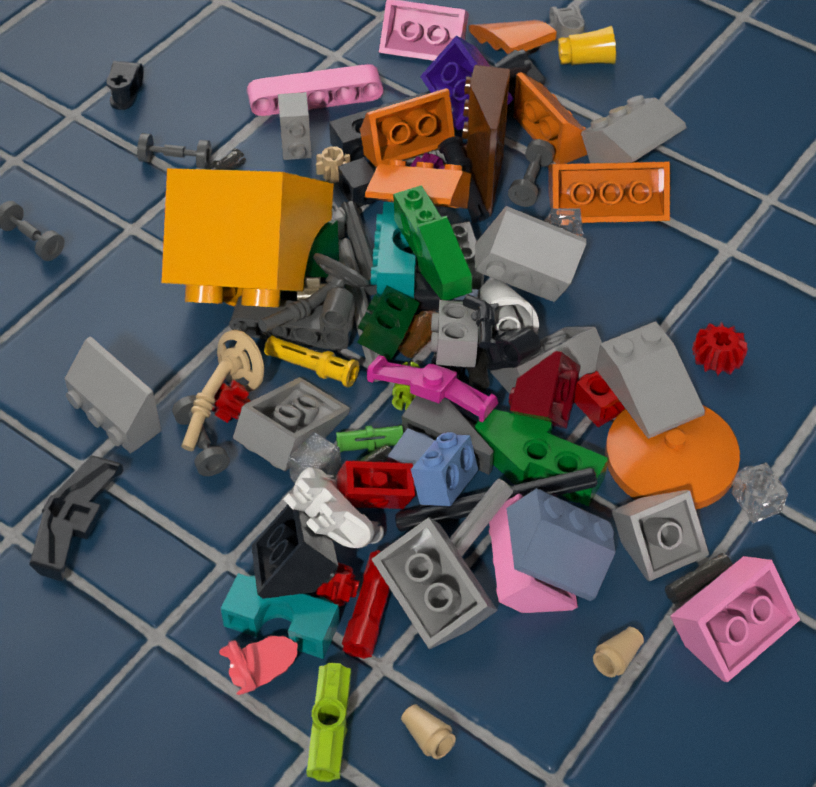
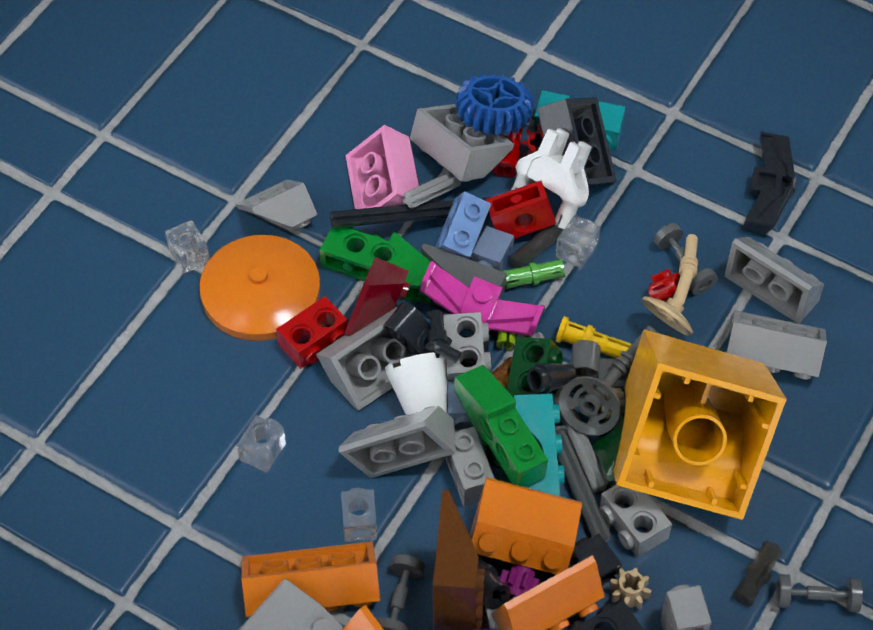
camera: 175 degrees right, 5 degrees up
(141, 342) = (778, 344): none -> light grey slope
(259, 661) = (591, 85): coral piece -> none
(285, 419) = (606, 278): light grey slope -> none
(328, 740) = (527, 53): lime piece -> none
(363, 587) = (494, 104): none -> blue gear
(374, 285) = (549, 376): none -> black cone
(429, 732) = (454, 56): tan cone -> none
(560, 543) = (363, 167): sand blue slope -> none
(617, 652) = (314, 118): tan cone -> none
(649, 379) = (282, 314): light grey slope -> none
(659, 293) = (257, 454): none -> clear brick
(696, 580) = (243, 181): clear smoke piece -> none
(719, 348) = (206, 385): red gear -> none
(736, 616) = (222, 148): bright pink slope -> none

